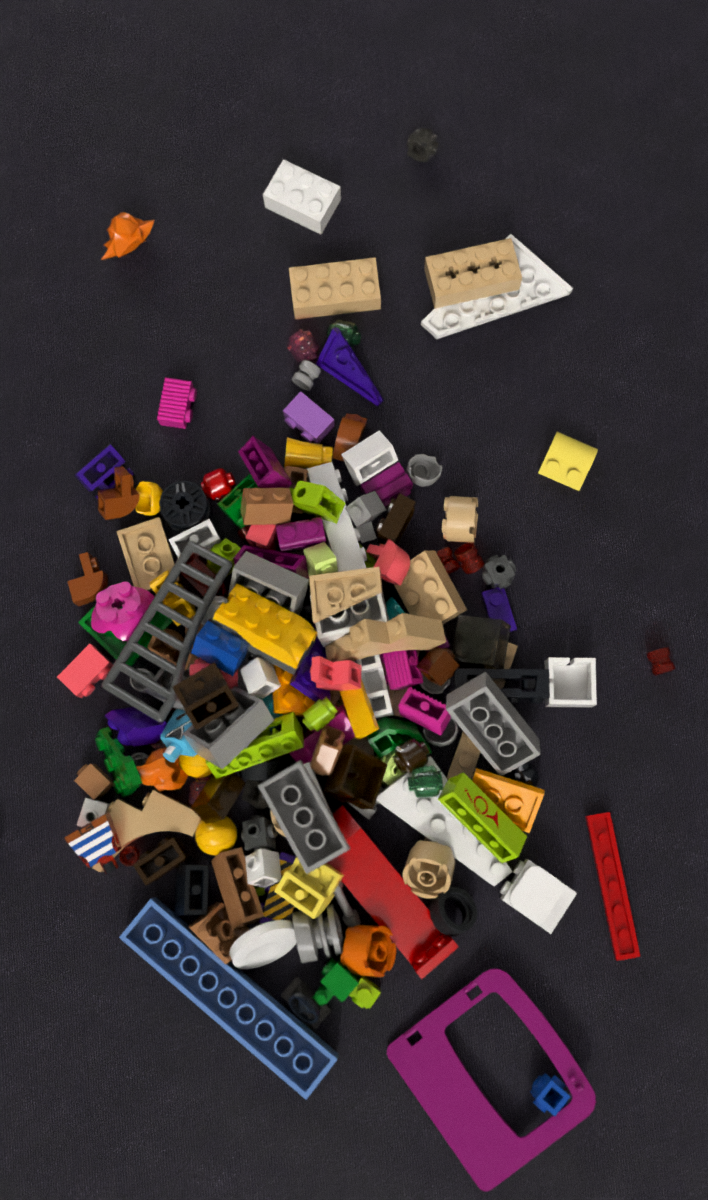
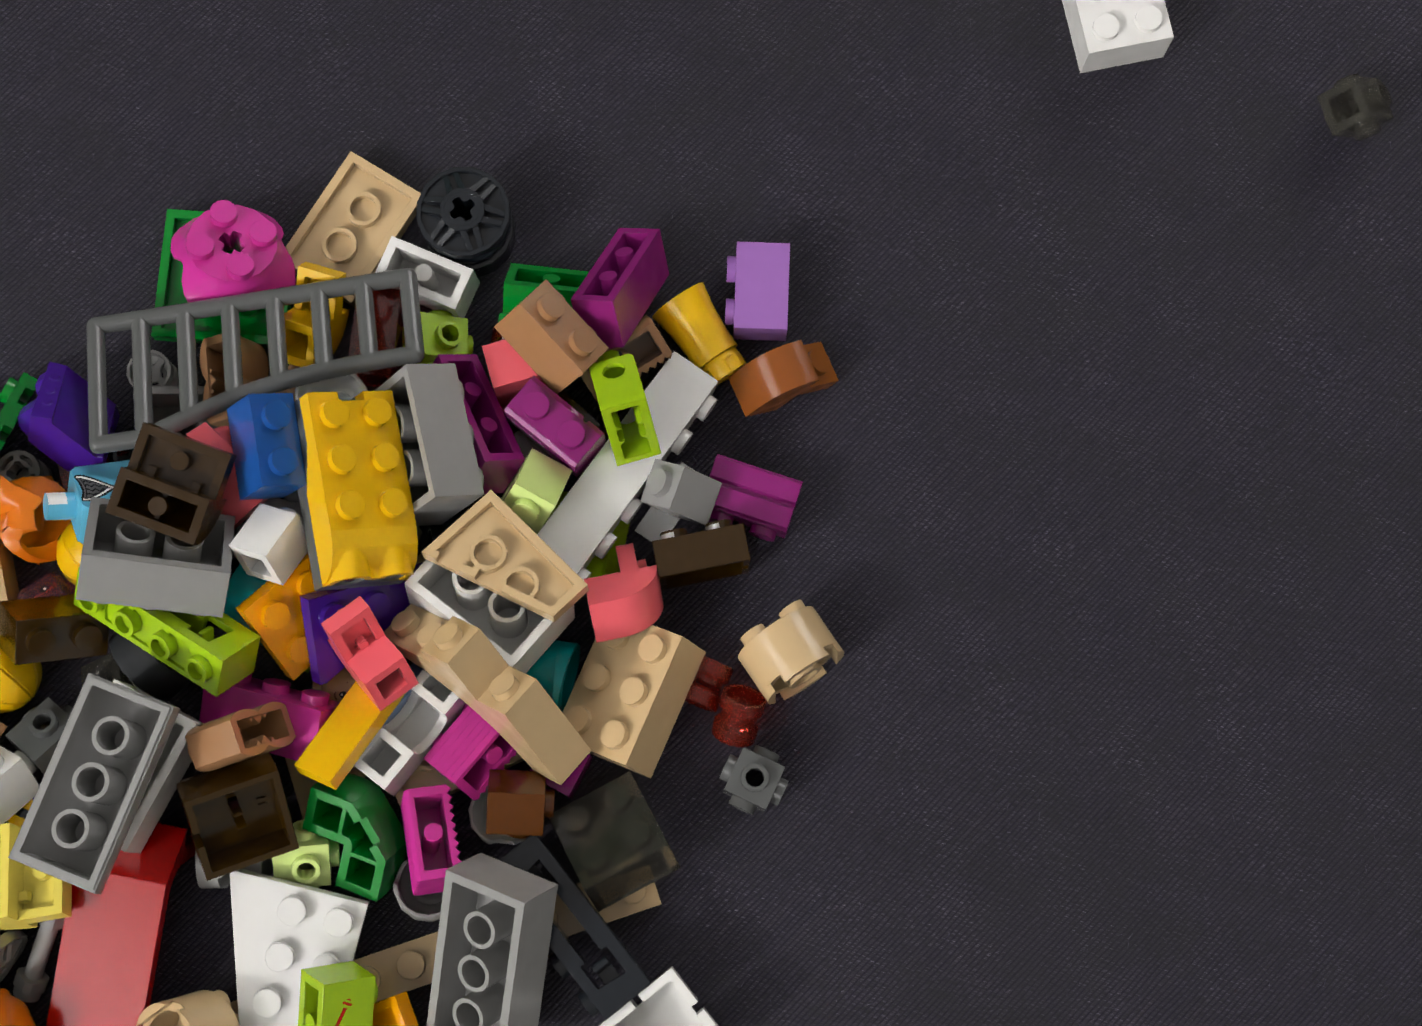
camera: 45 degrees right, 0 degrees up
(85, 671) = (99, 280): coral brick -> none
(87, 587) = (243, 181): dark orange brick -> none
(100, 468) = (428, 49): dark purple brick -> none
(119, 500) = (399, 115): dark orange brick -> none
(149, 498) = (437, 153): yellow hair -> none
(176, 403) = (623, 76): dark pink brick -> none
(217, 484) = (546, 239): red head -> none
(303, 346) = (871, 190): clear pink head -> none
(306, 375) = (839, 232): light grey wheel -> none
(319, 714) = (289, 680): lime brick -> none
(335, 288) = (1005, 162): tan brick -> none
(341, 362) = (893, 270): dark purple wing -> none
(349, 331) = (941, 237): clear green head -> none
(369, 457) = (767, 432): white slope -> none
(411, 755) = (338, 874): dark brown head -> none
(423, 470) = (824, 532): light grey hair -> none
(425, 782) = (312, 929): clear green head -> none
(475, 273) = (1235, 348): tan brick -> none
(498, 606) = (698, 827): dark purple plate -> none
(537, 287) = (1228, 412): white wing -> none
(568, 461) = (1029, 746): light yellow brick -> none

